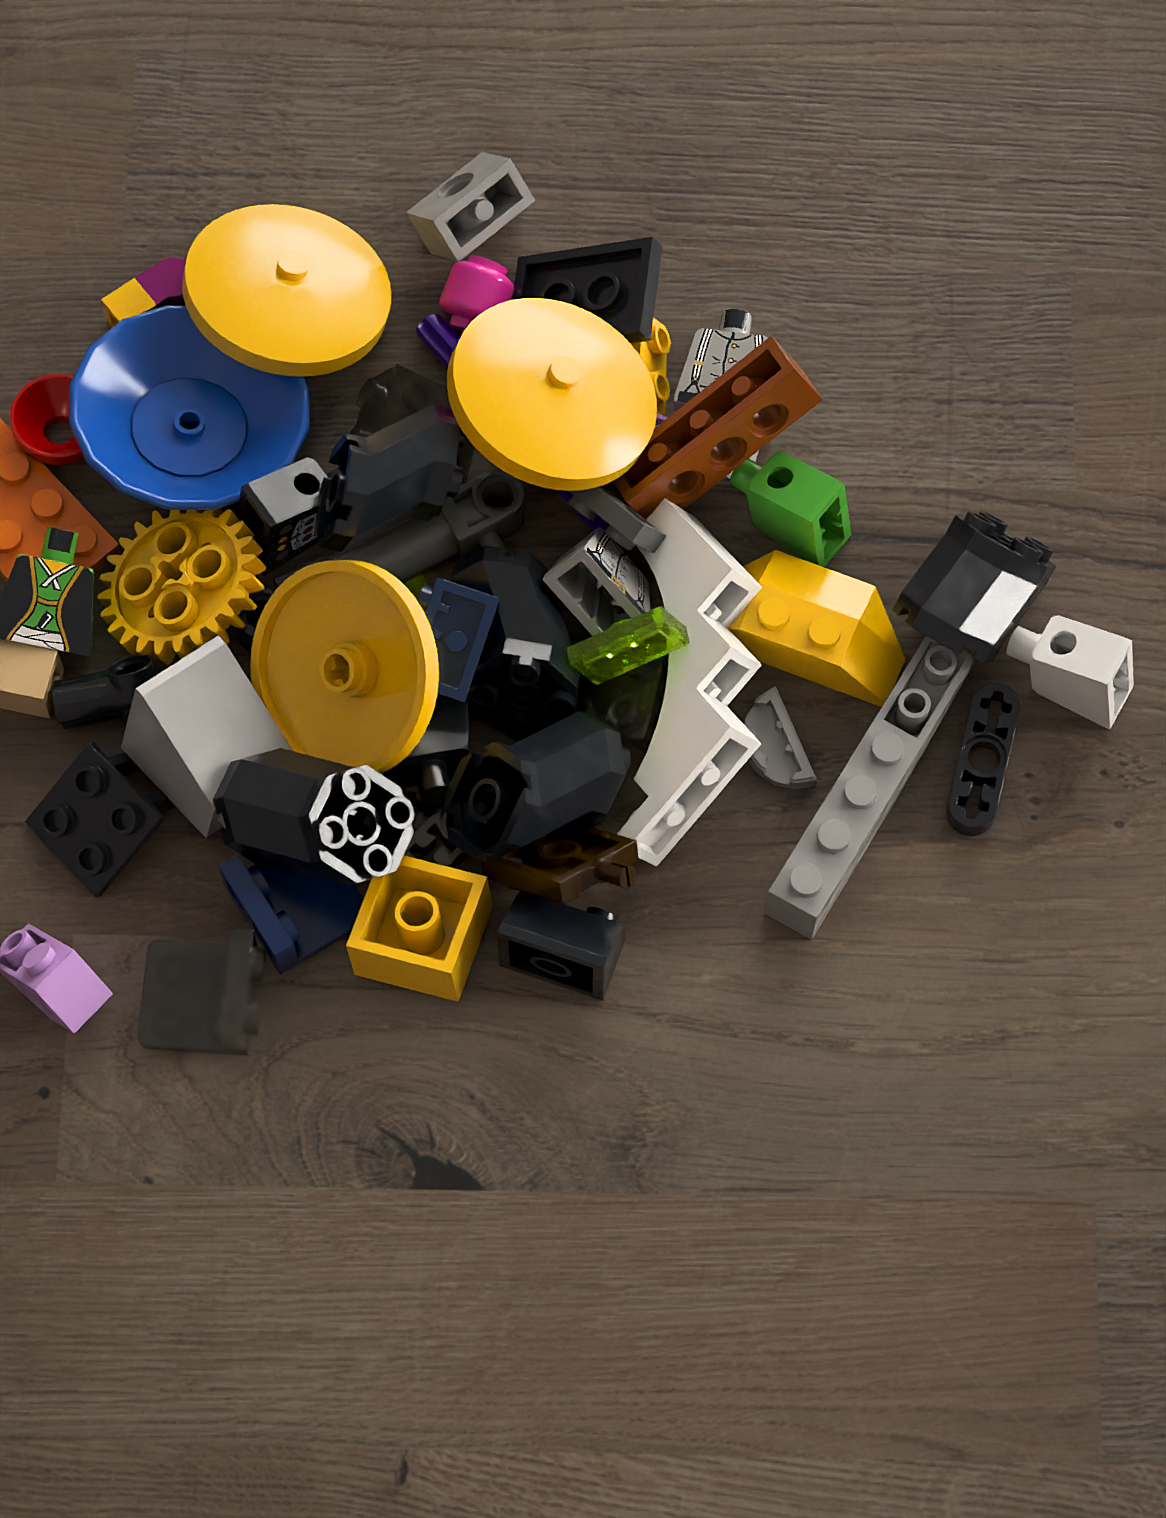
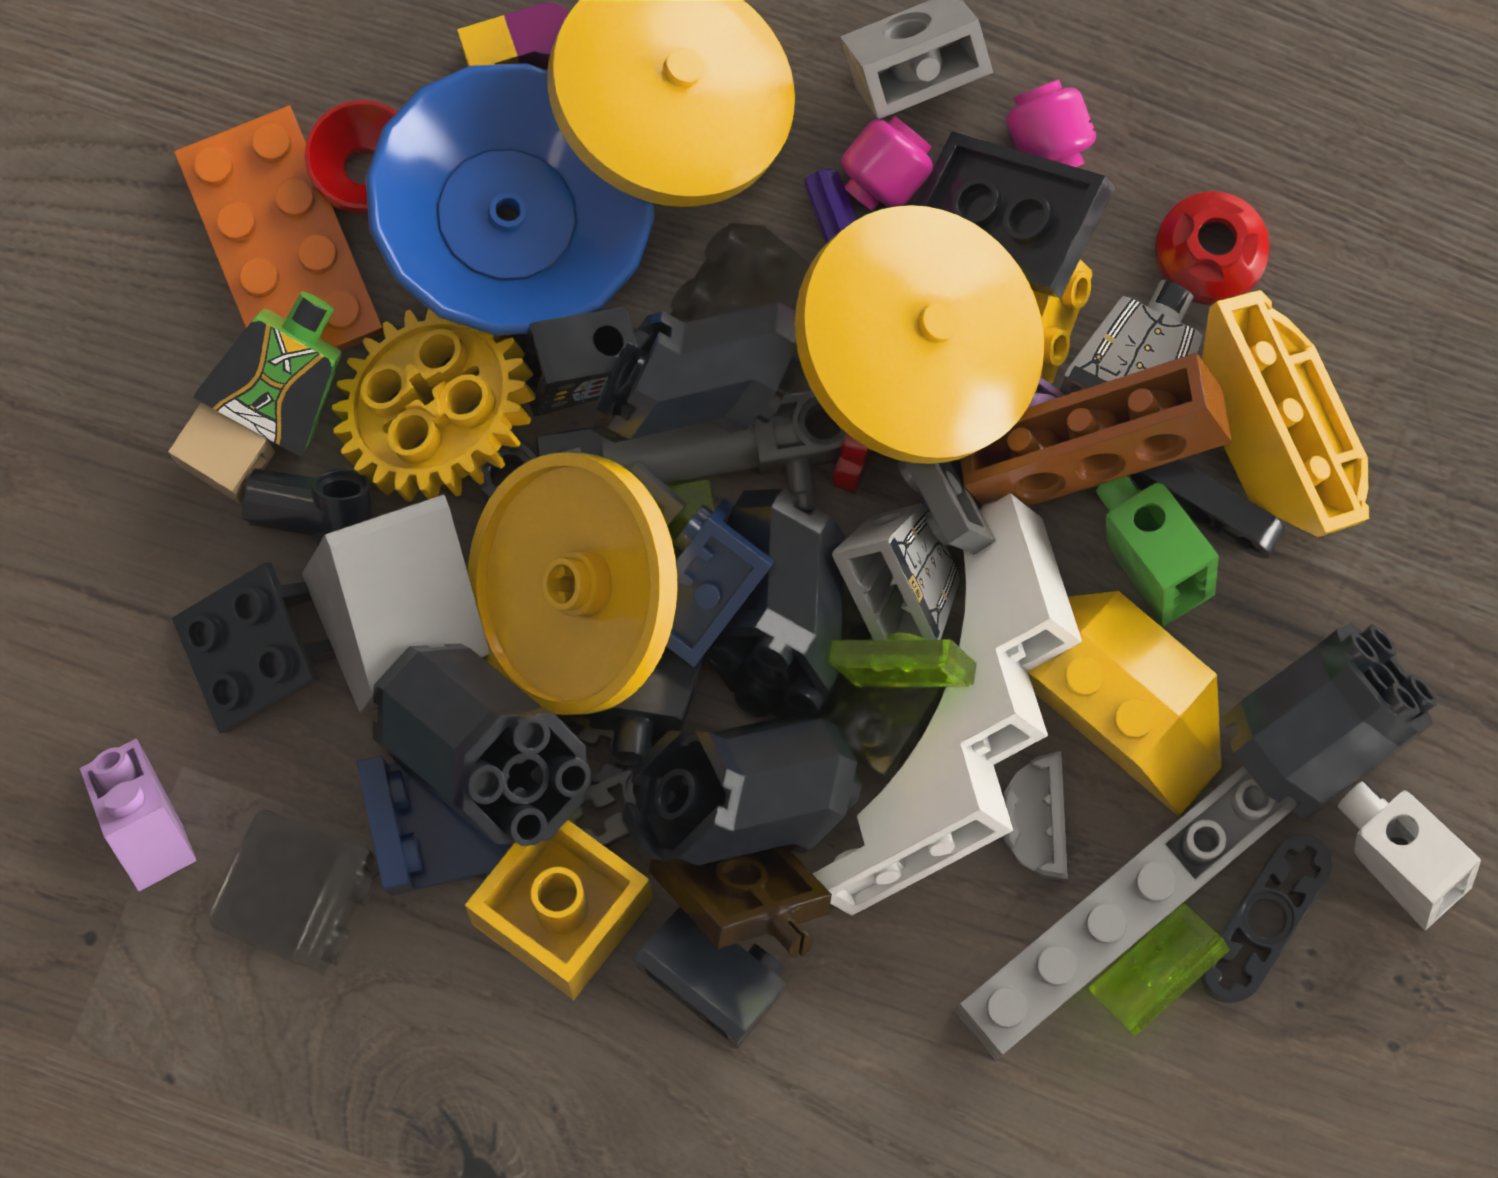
camera: 20 degrees right, 10 degrees up
(531, 516) = (851, 465): none -> red tile
(592, 221) = (1051, 123): none -> dark pink head
(762, 297) = (1202, 273): none -> red piece
(858, 469) = (1217, 507): none -> black beam
(864, 392) = (1285, 418): none -> yellow wedge
(914, 822) = (1159, 969): none -> clear neon green plate

